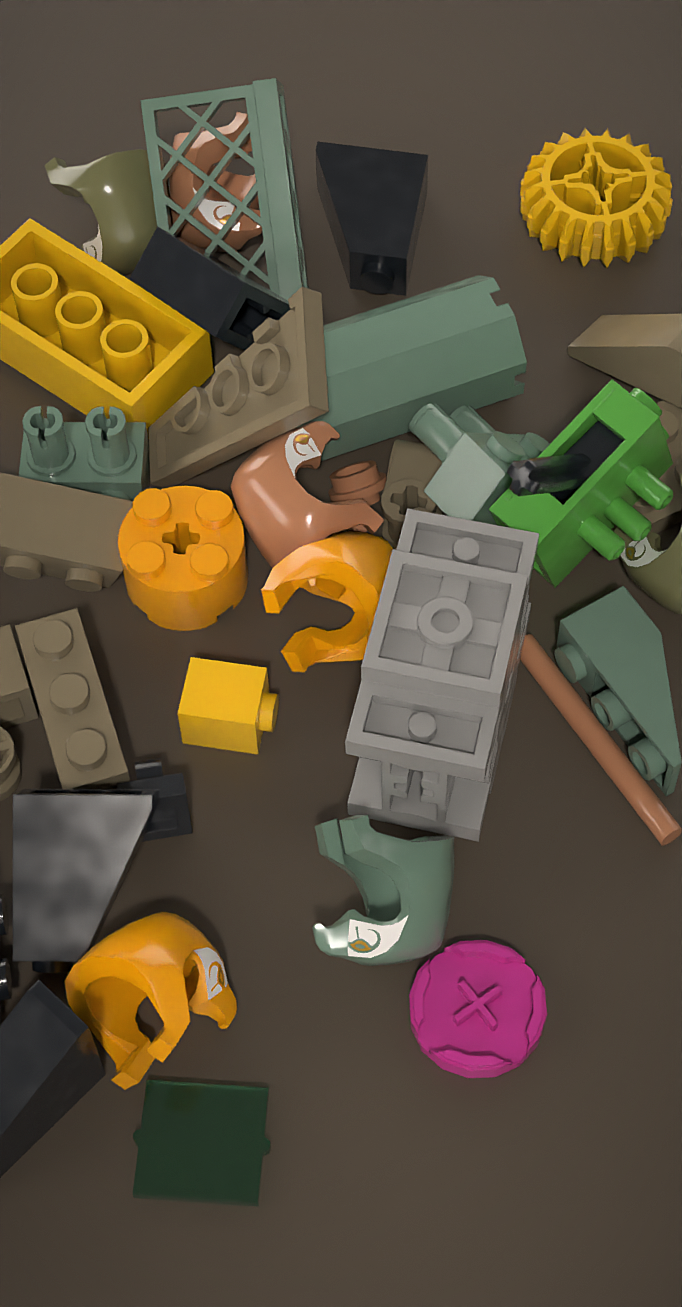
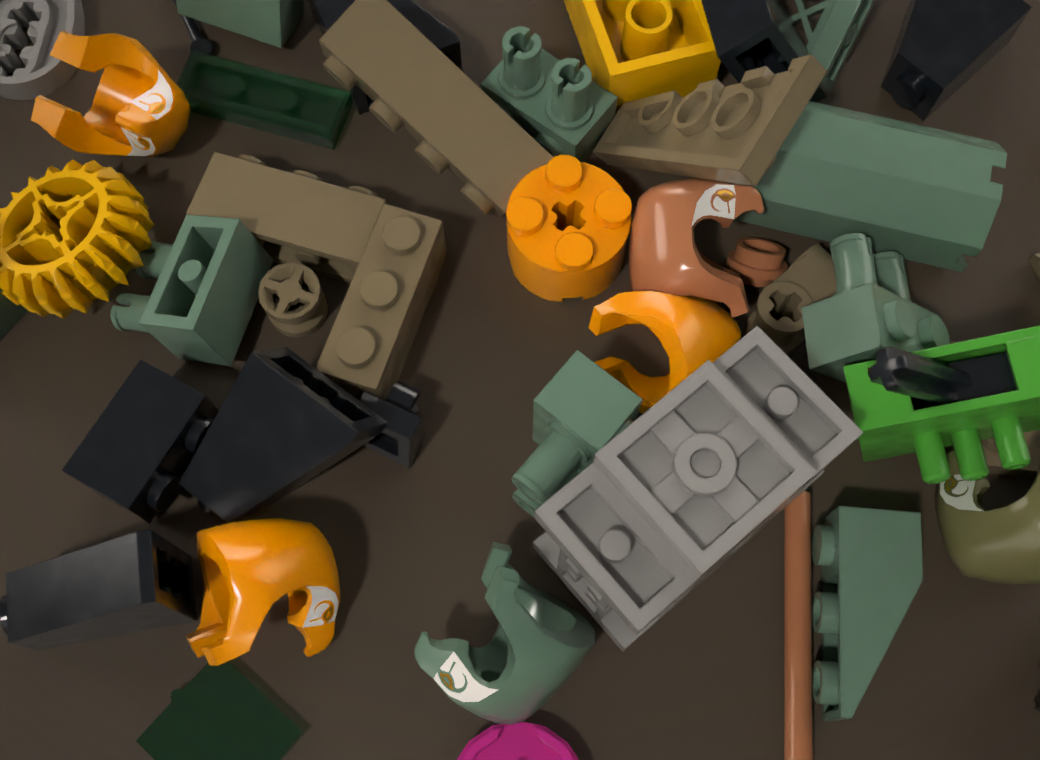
camera: 35 degrees right, 10 degrees up
(226, 705) = (504, 378): yellow brick -> none
(315, 698) = (572, 422): none -> sand green brick

